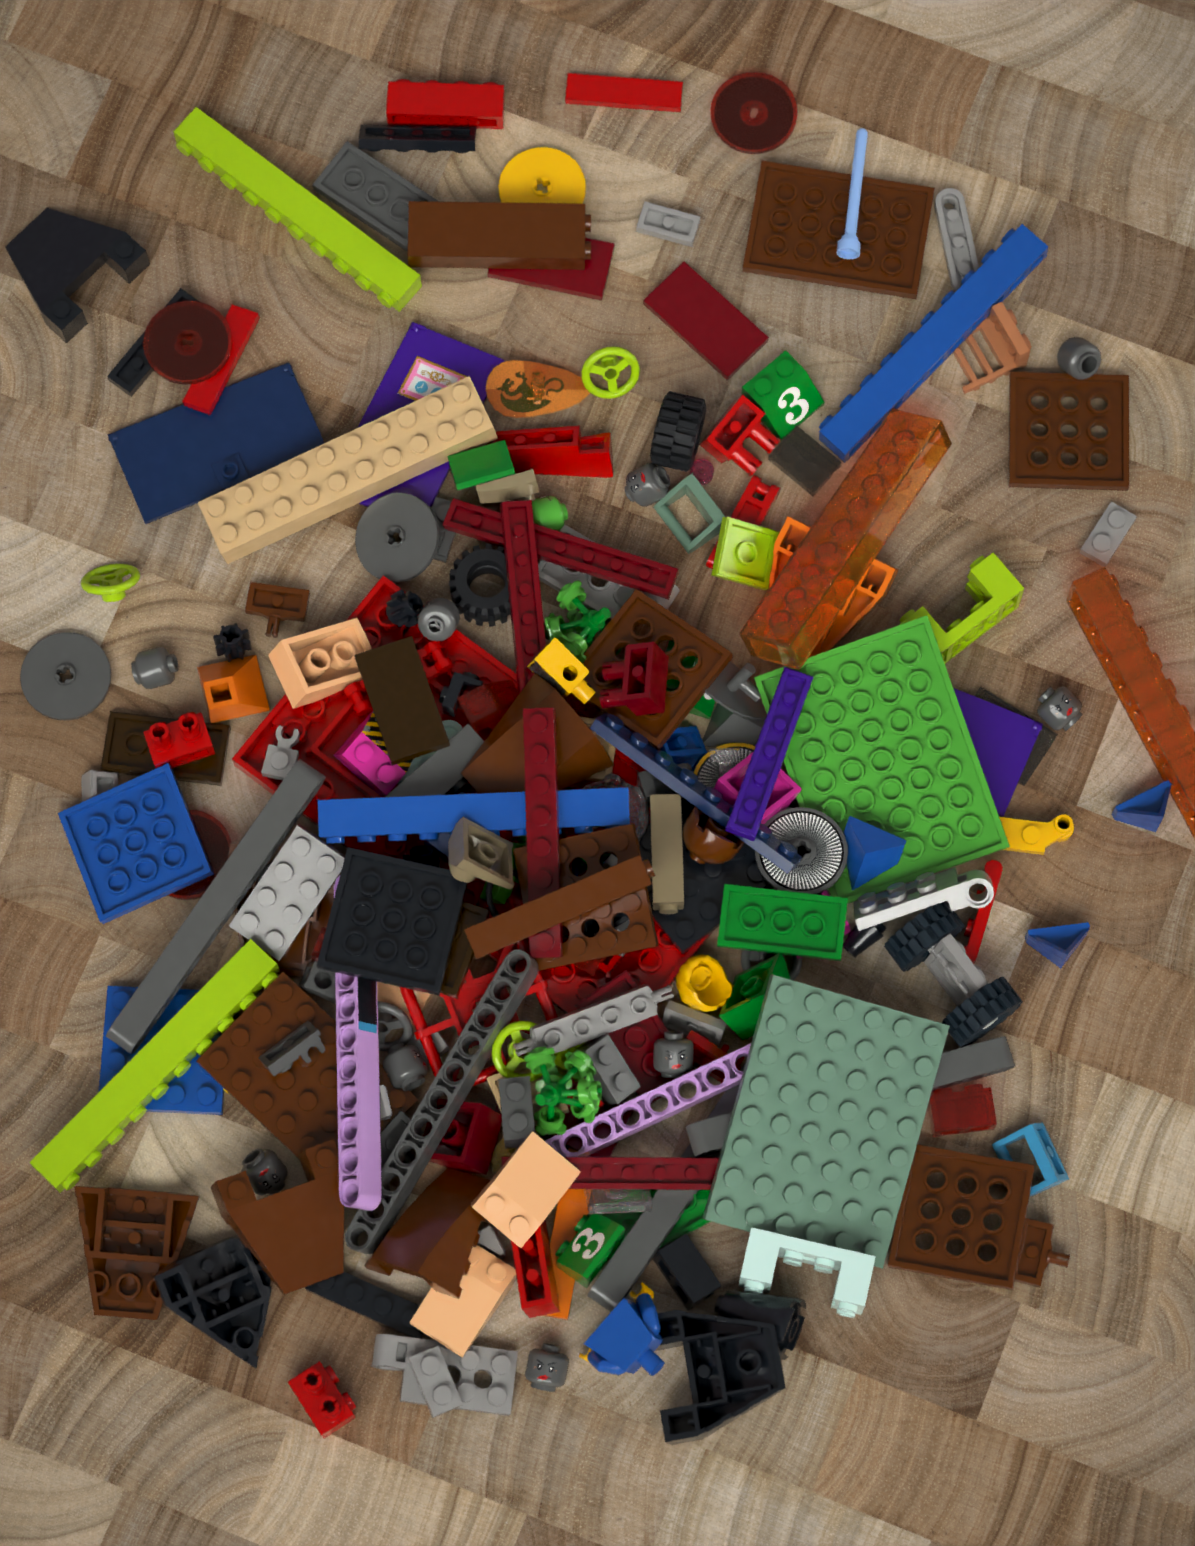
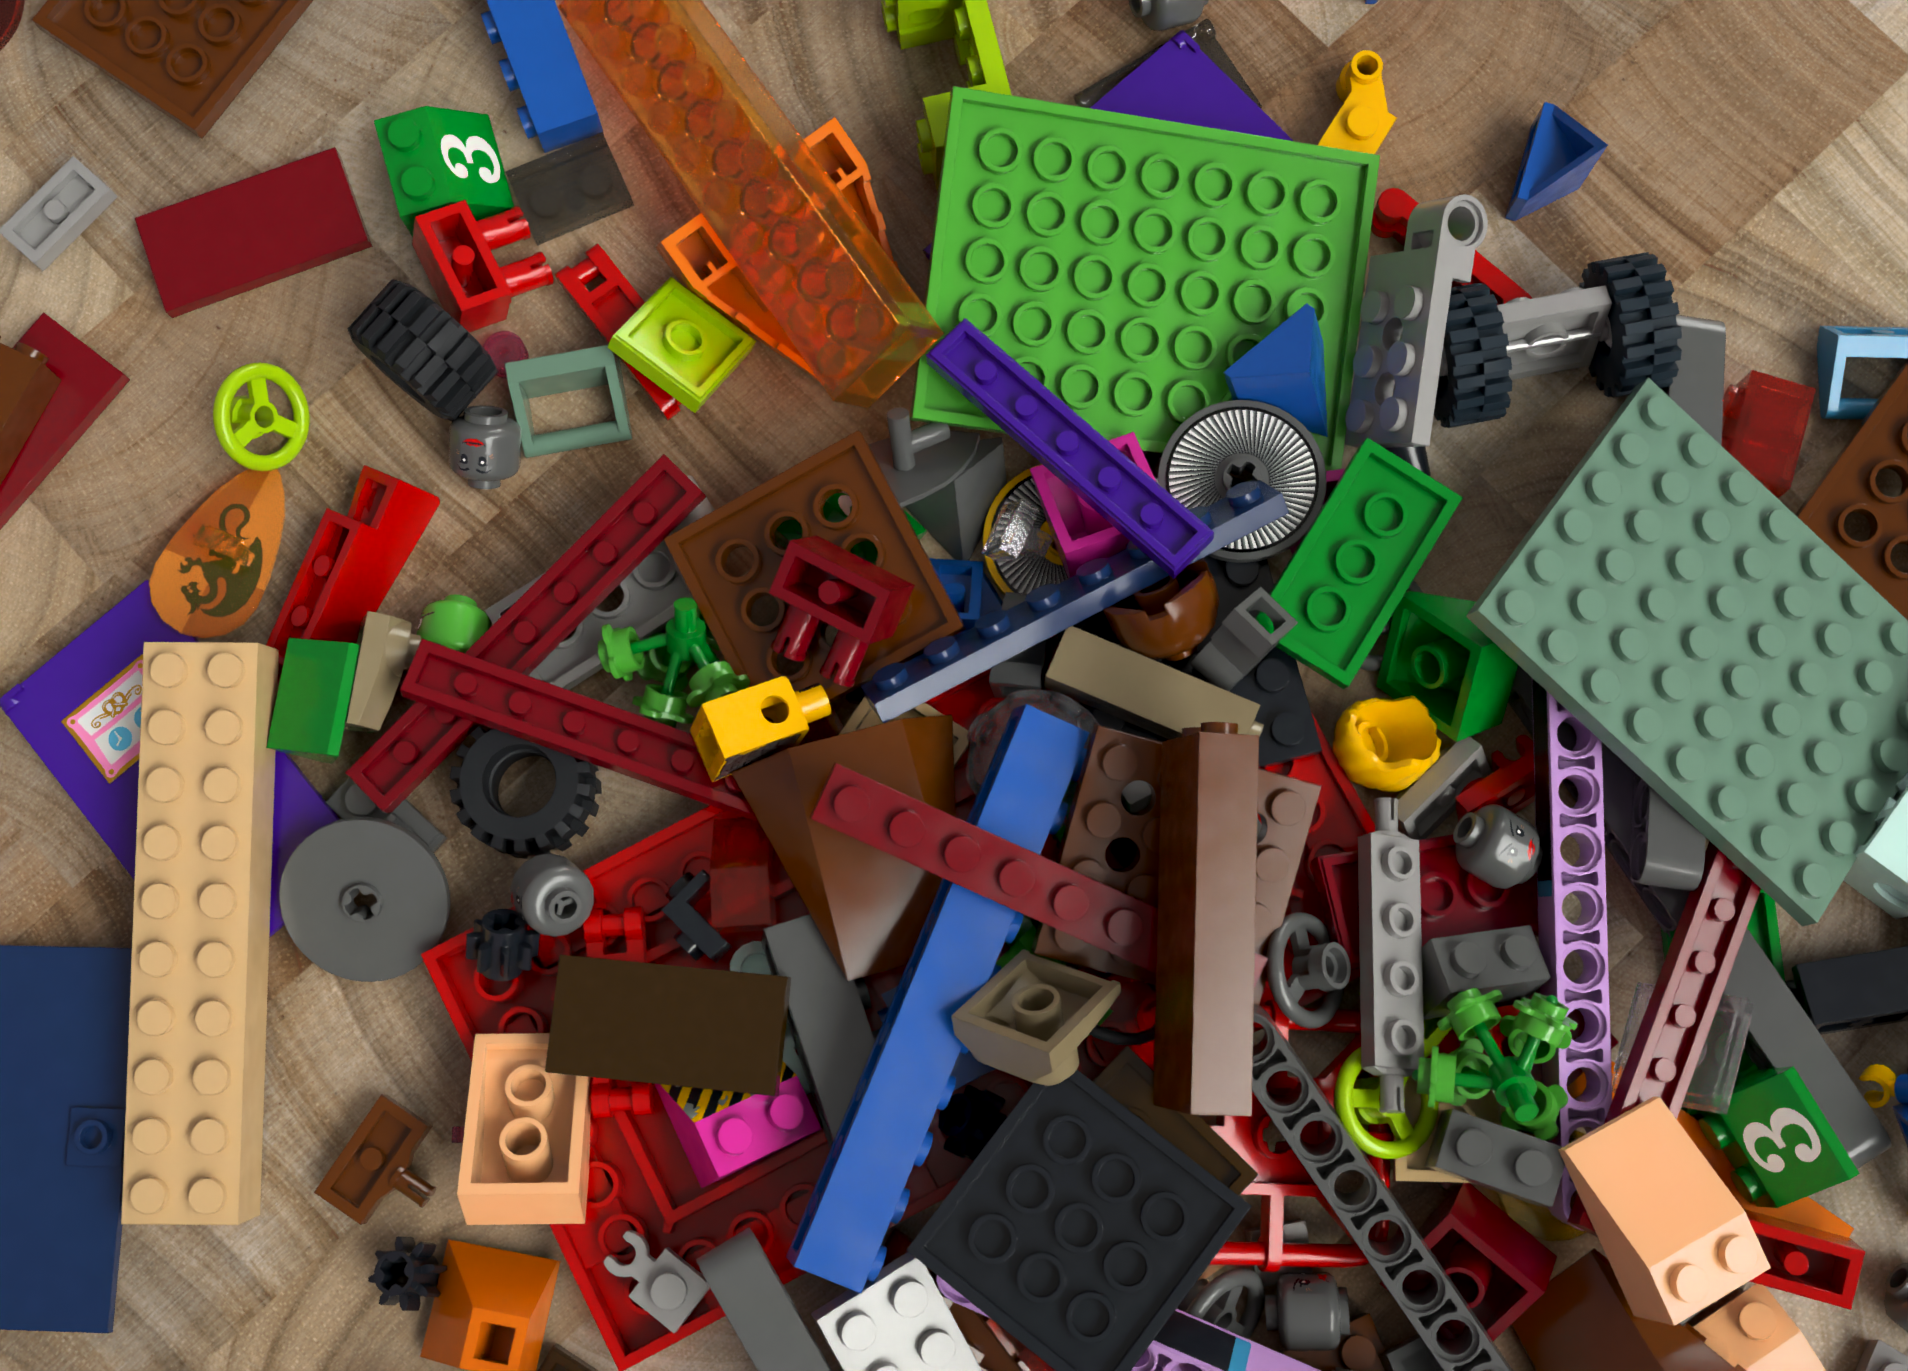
camera: 65 degrees left, 5 degrees up
(572, 997) = (1313, 967): none -> dark grey piece
(708, 881) = (1242, 641): none -> dark grey leg

